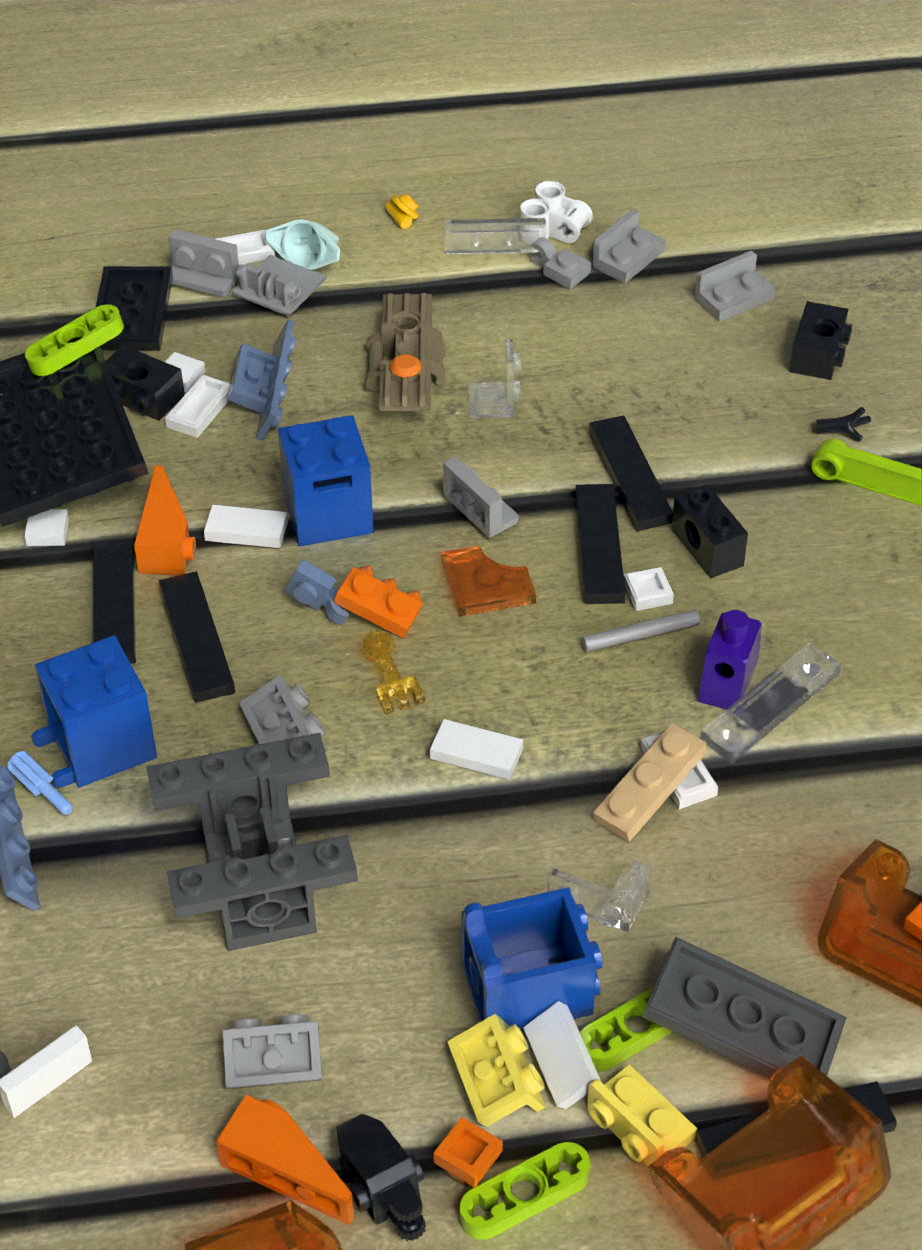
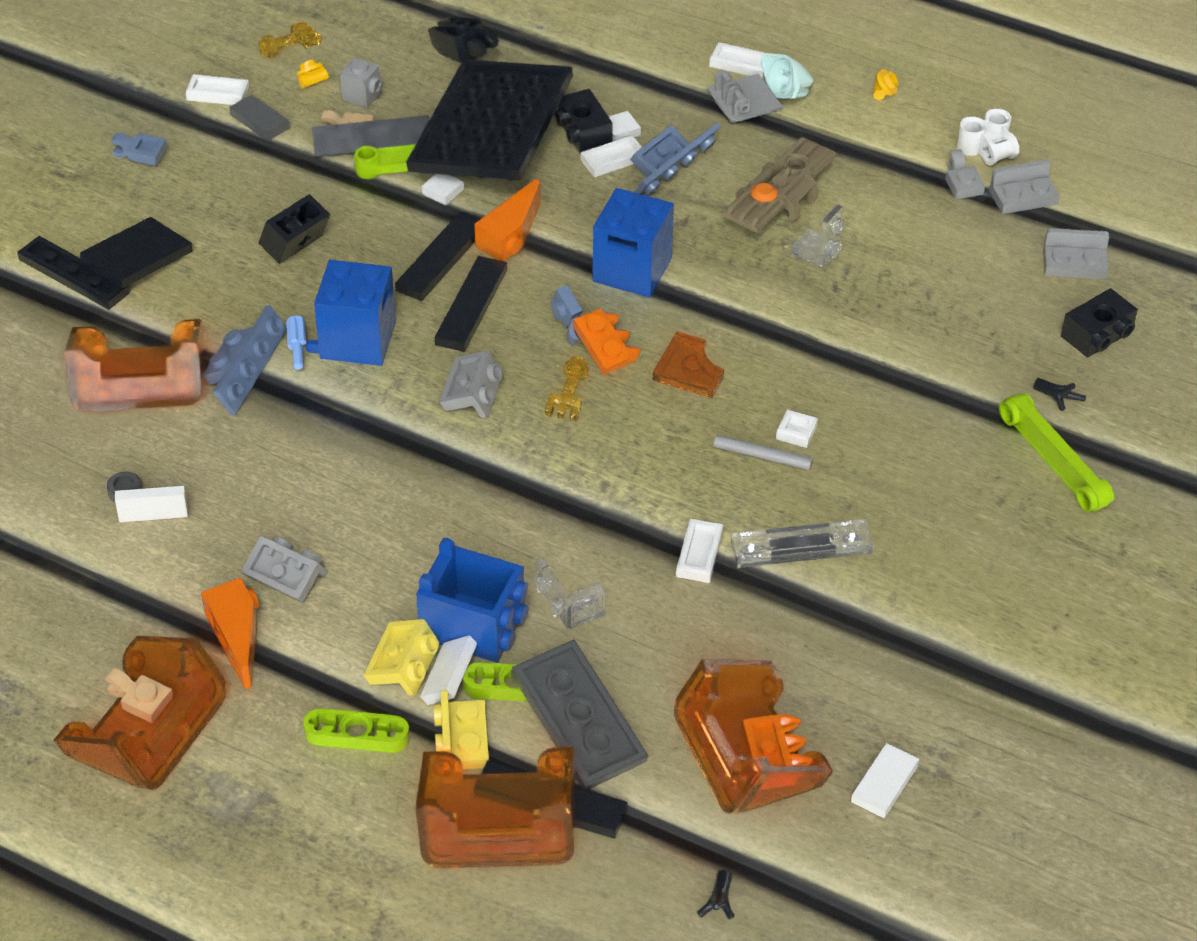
camera: 35 degrees right, 0 degrees up
(53, 350) = (562, 67): lime beam -> none
(142, 301) = (627, 67): black tile -> none
(203, 263) = (699, 57): light grey bracket -> none
(246, 526) = (566, 249): white tile -> none
(254, 865) = (385, 447): dark grey piece -> none
(382, 1175) = (278, 669): black hinge -> none
(467, 1152) = (337, 686): orange tile -> none
(476, 499) = (734, 309): light grey bracket -> none
(476, 749) = (579, 467): white tile -> none
(493, 235) = (928, 131): clear tile -> none
(599, 544) = (793, 381): black tile -> none
(631, 473) = (864, 346): black tile -> none
(650, 782) = (666, 546): tan plate -> none
(709, 531) = (872, 411): black brick -> none
(737, 644) = (795, 497): dark purple torso -> none

